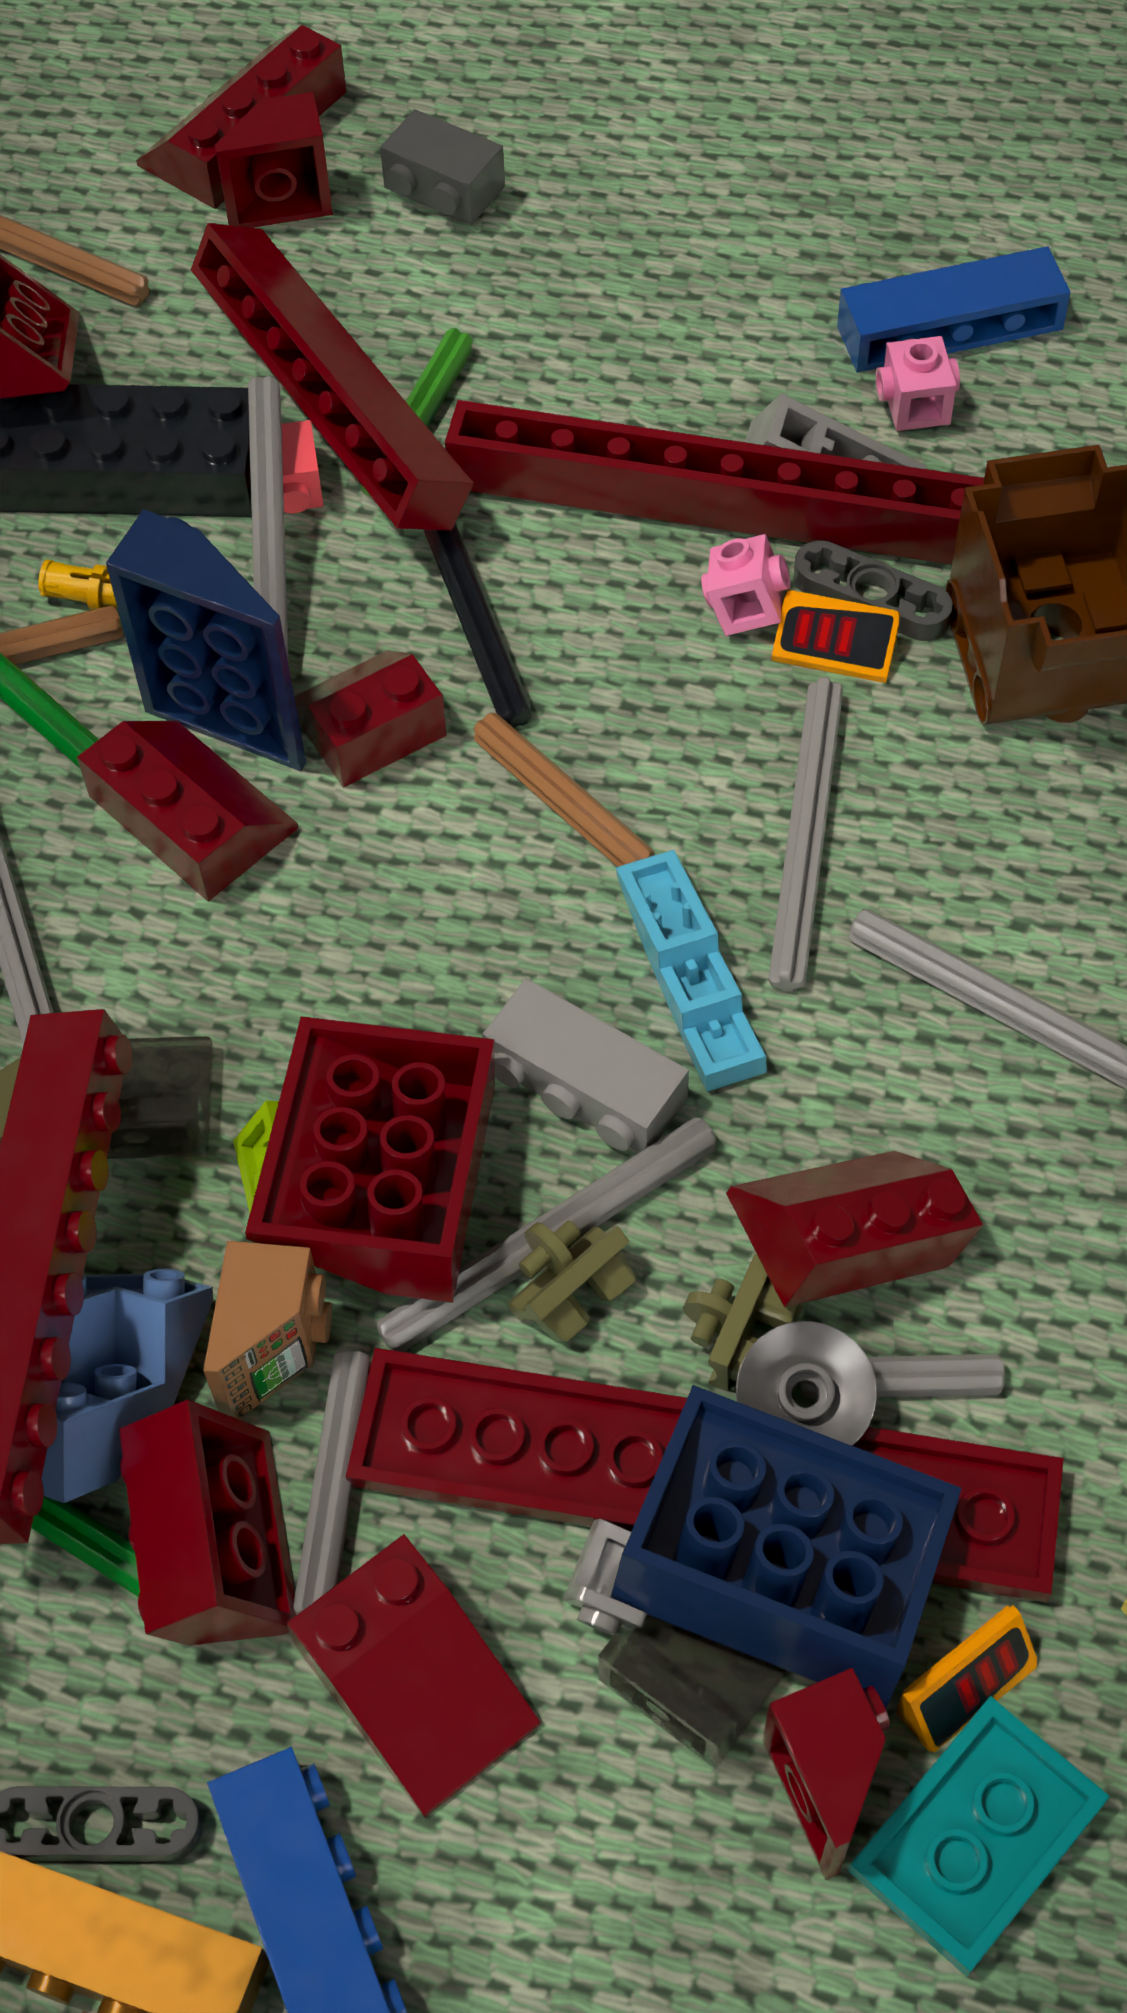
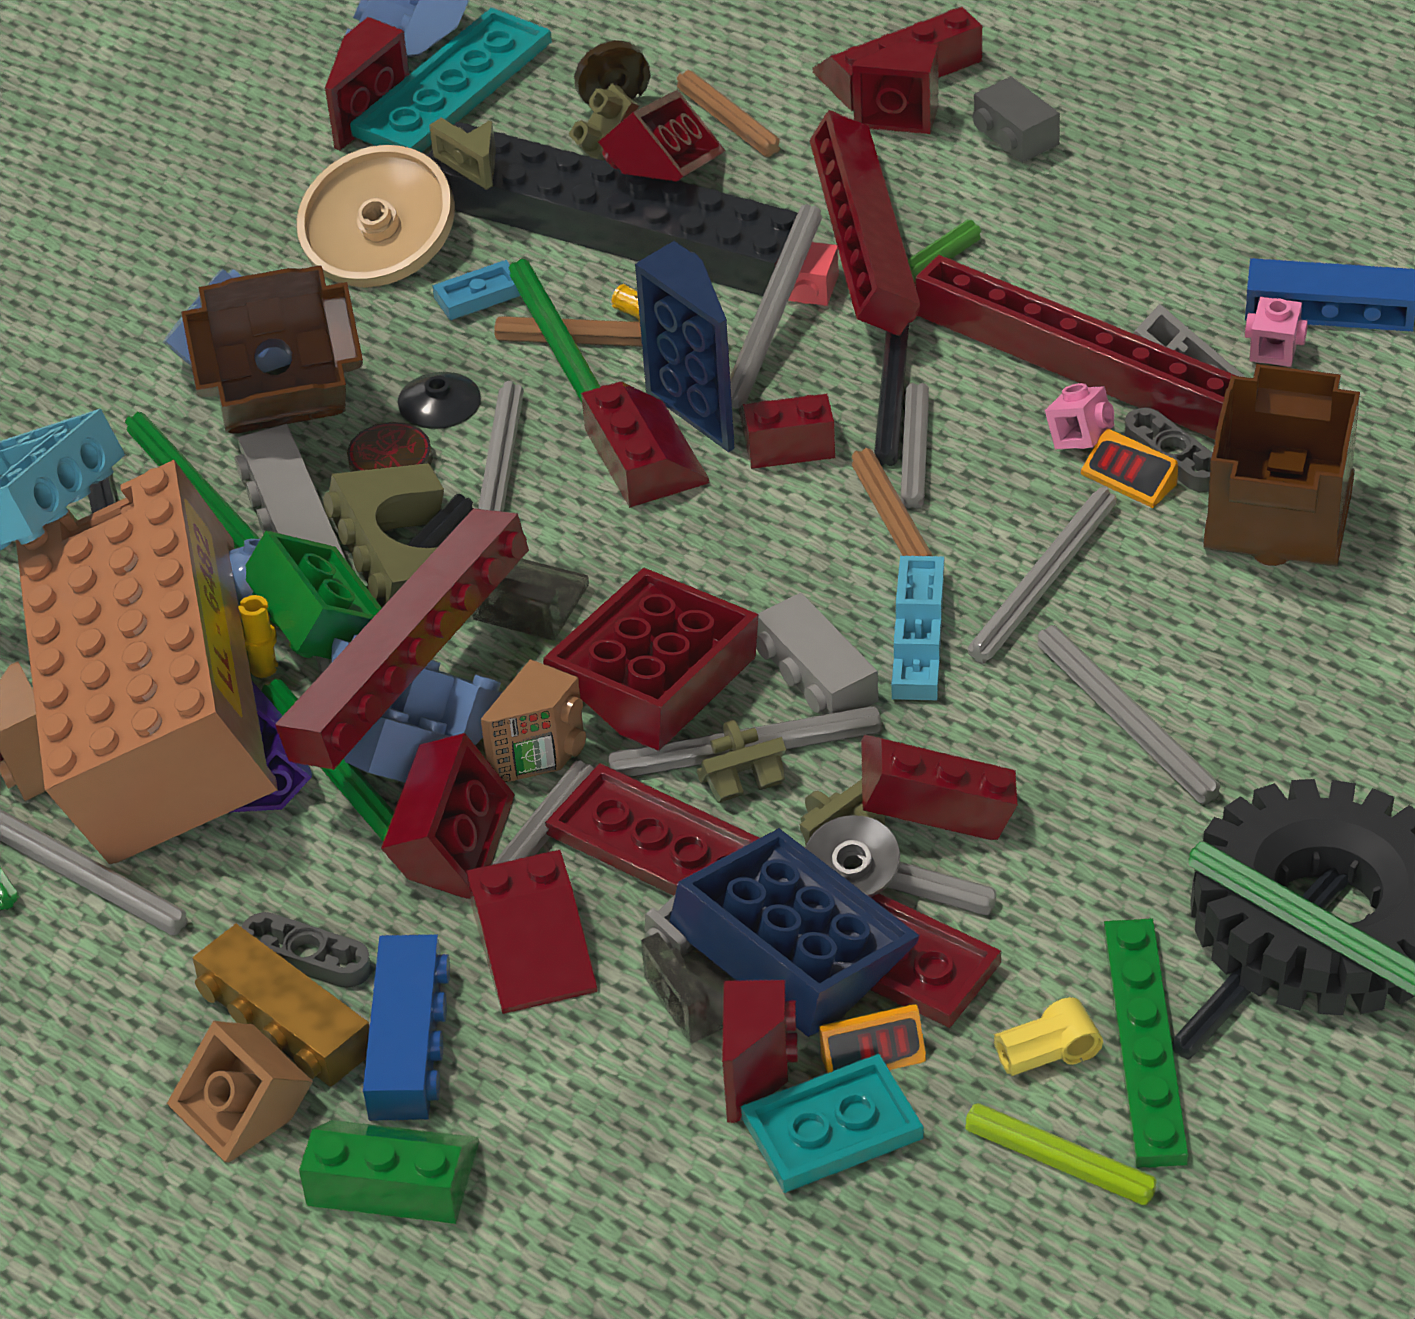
camera: 25 degrees right, 15 degrees down
(545, 687) = (914, 445): none -> light grey axle

